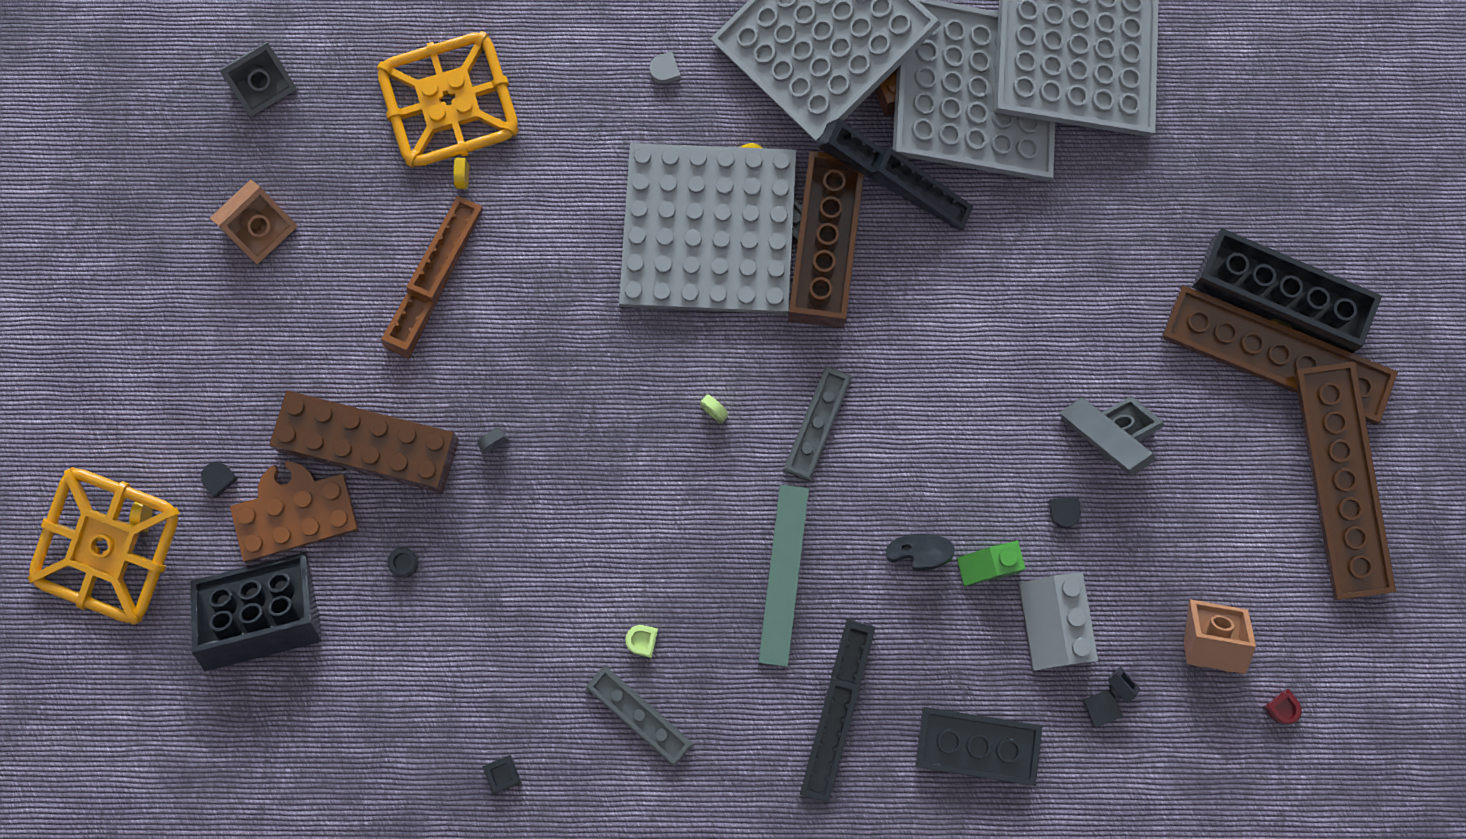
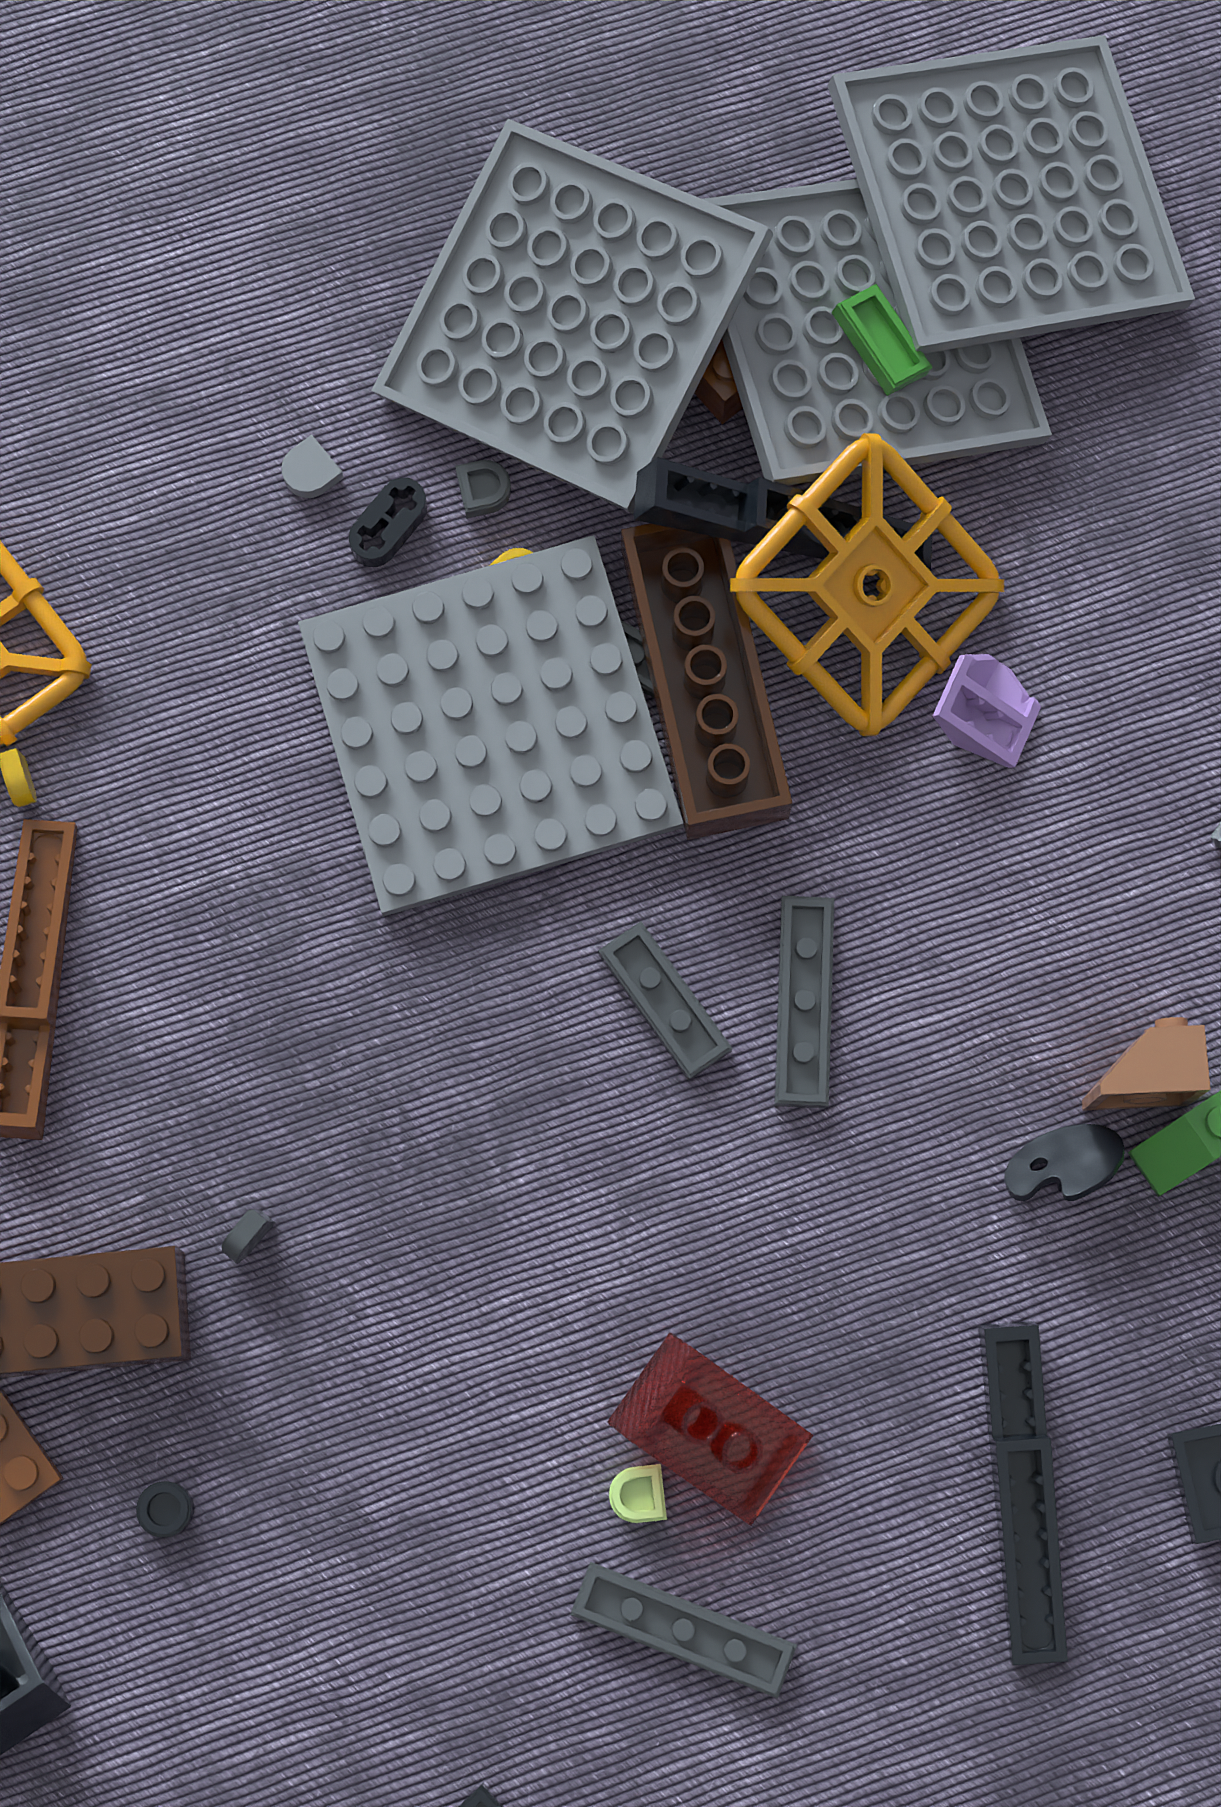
camera: 20 degrees left, 0 degrees up
(689, 620) = (709, 1429): none -> clear red slope
(691, 103) = (379, 515): none -> black beam
(714, 408) = (616, 1039): yellowish green tile -> none
(746, 398) = (665, 1001): none -> dark grey tile
(749, 107) = (483, 487): none -> dark grey tile
(783, 575) = (845, 1290): sand green slope -> none
(911, 216) = (838, 584): none -> light orange plate
(966, 307) = (986, 709): none -> lavender slope
(980, 98) = (881, 339): none -> bright green tile
(982, 519) = (1157, 1070): none -> nougat slope

